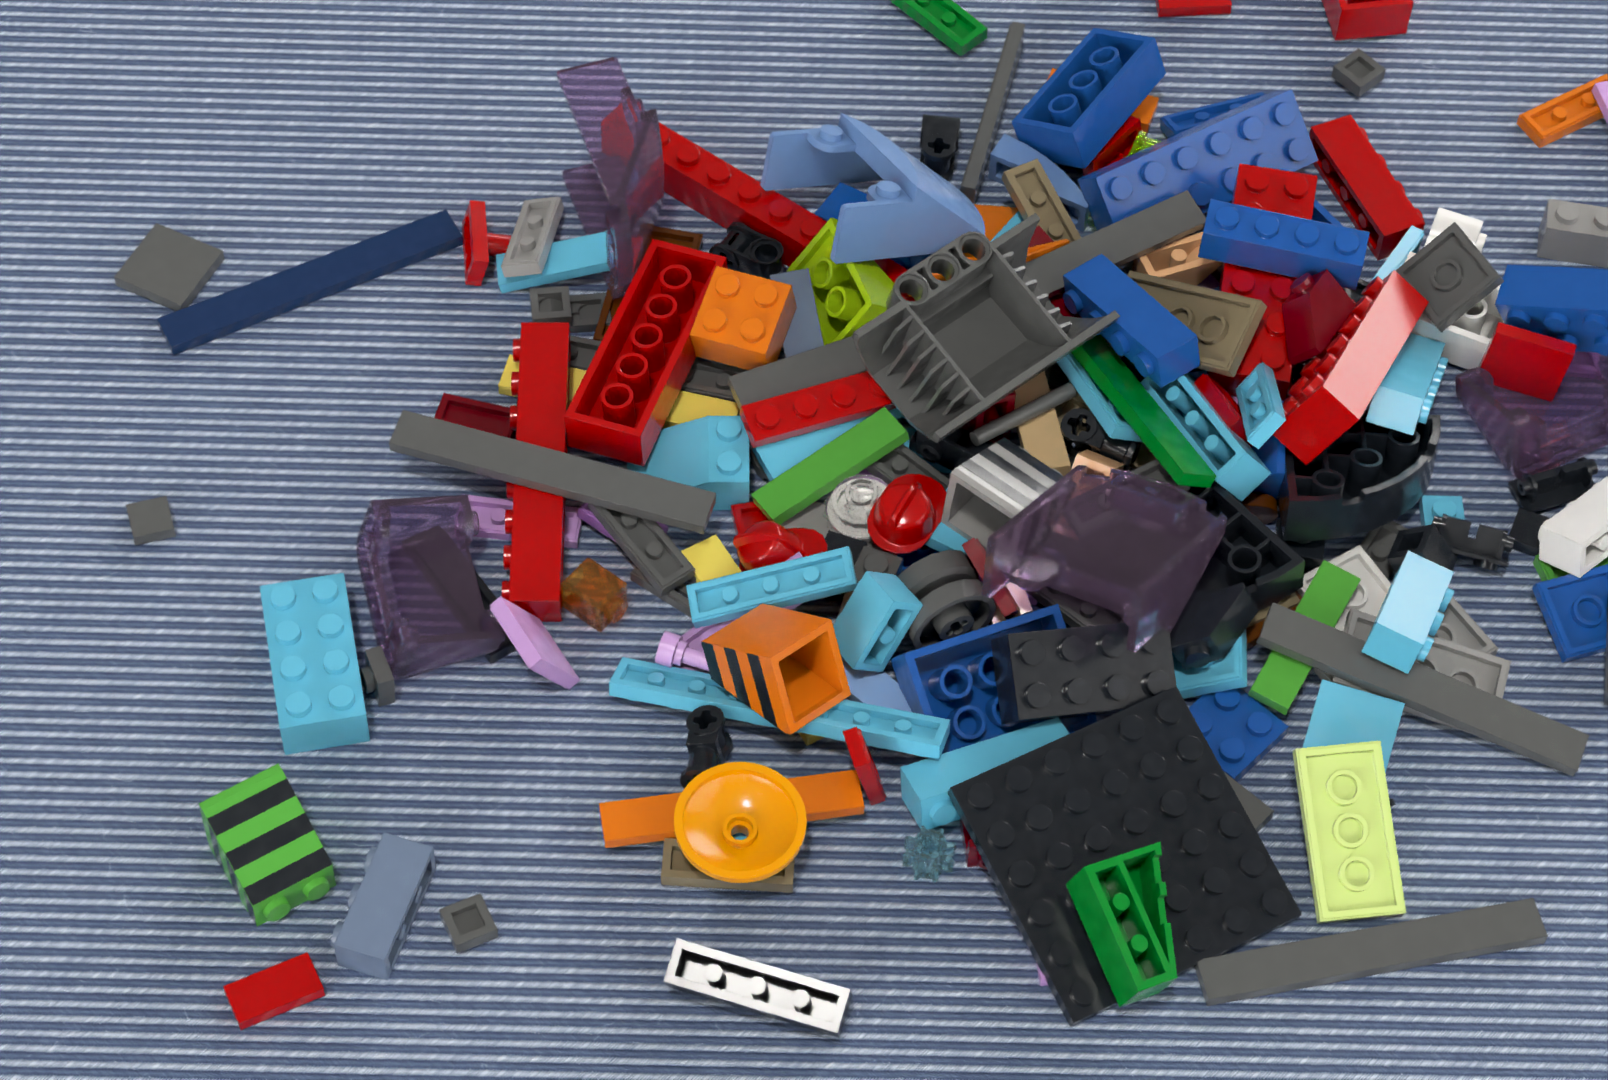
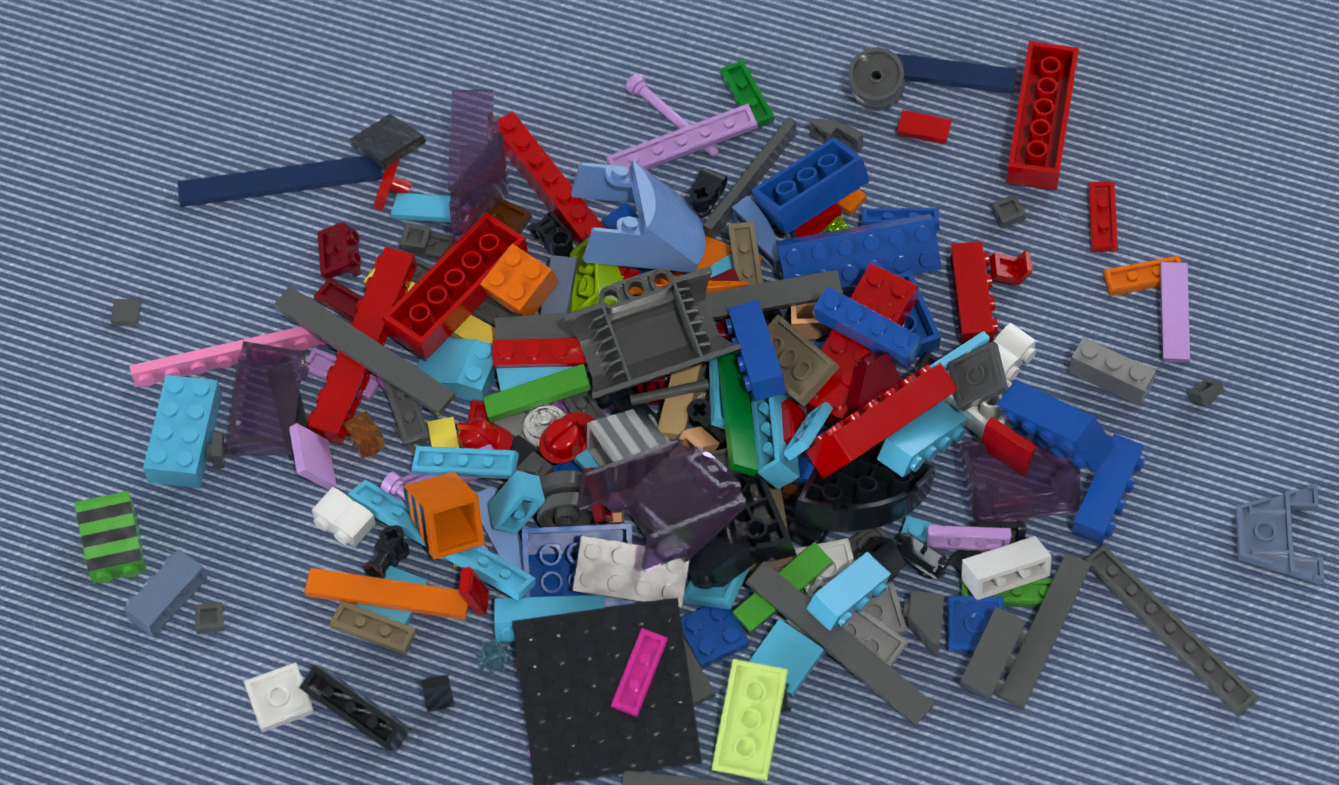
camera: 25 degrees right, 5 degrees up
(169, 268) = (198, 148): dark grey tile -> none
(274, 991) = (86, 625): red tile -> none
(320, 545) = (218, 356): none -> bright pink plate
(442, 352) = (339, 250): none -> dark red bracket
(456, 185) = (387, 141): none -> clear smoke tile
(532, 237) = (421, 188): light grey tile -> none
(613, 719) = (343, 517): none -> white brick
(624, 1010) = (278, 697): none -> white tile
(745, 801) = (376, 591): light orange dish -> none
(777, 36) = (637, 86): none -> lavender piece
(877, 927) = (437, 693): none -> black tile
(893, 77) = (688, 139): none -> lavender tile
(1068, 29) = (824, 130): none -> dark grey slope
(1127, 922) = (581, 731): green wedge -> none
(1169, 804) = (639, 672): none -> dark pink tile
(1401, 143) = (1011, 269): none -> red bracket
(1481, 51) = (1103, 216): none -> red tile
(1520, 625) = (925, 618): none -> dark grey slope
(1525, 498) = (967, 537): none -> lavender tile

